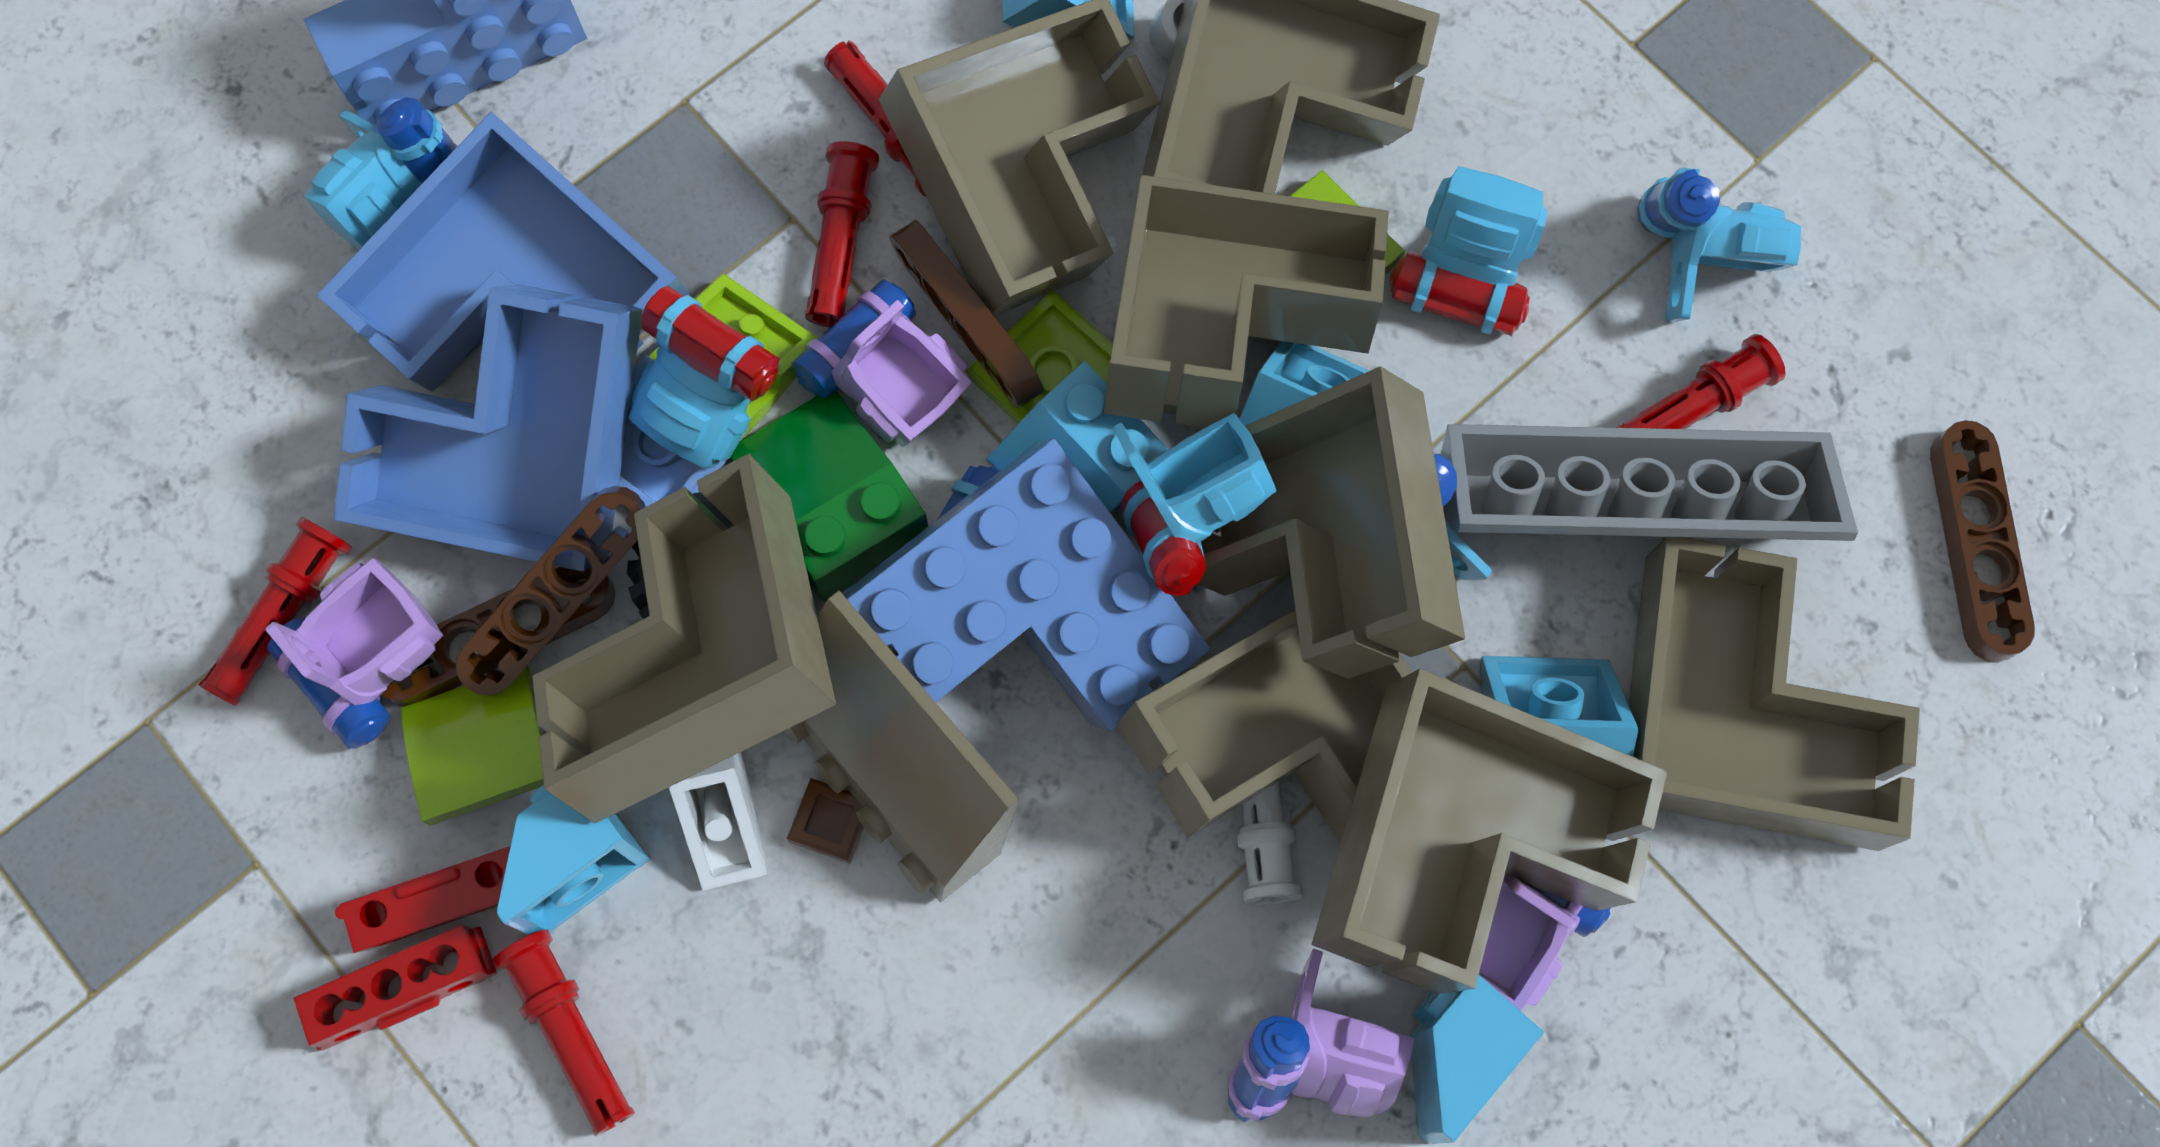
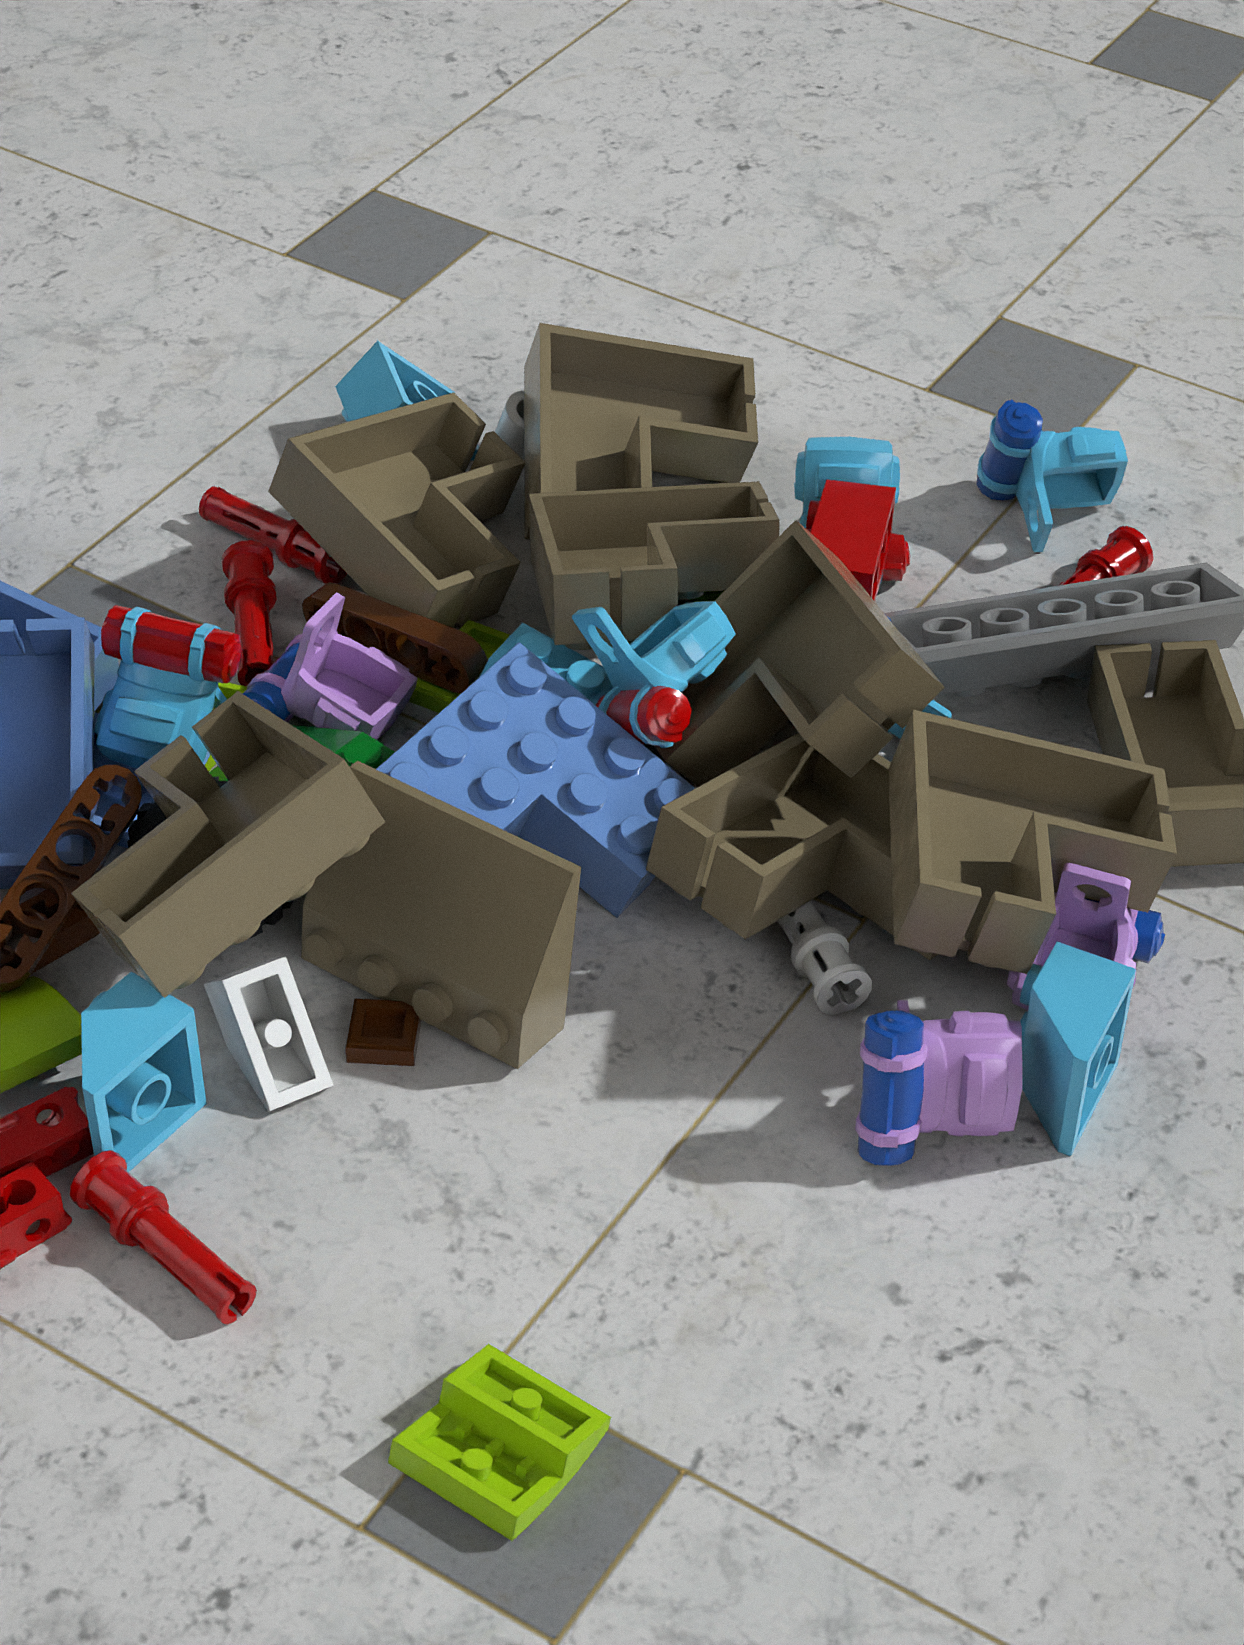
camera: 15 degrees left, 30 degrees down
(1452, 326) = (856, 527): none -> red brick

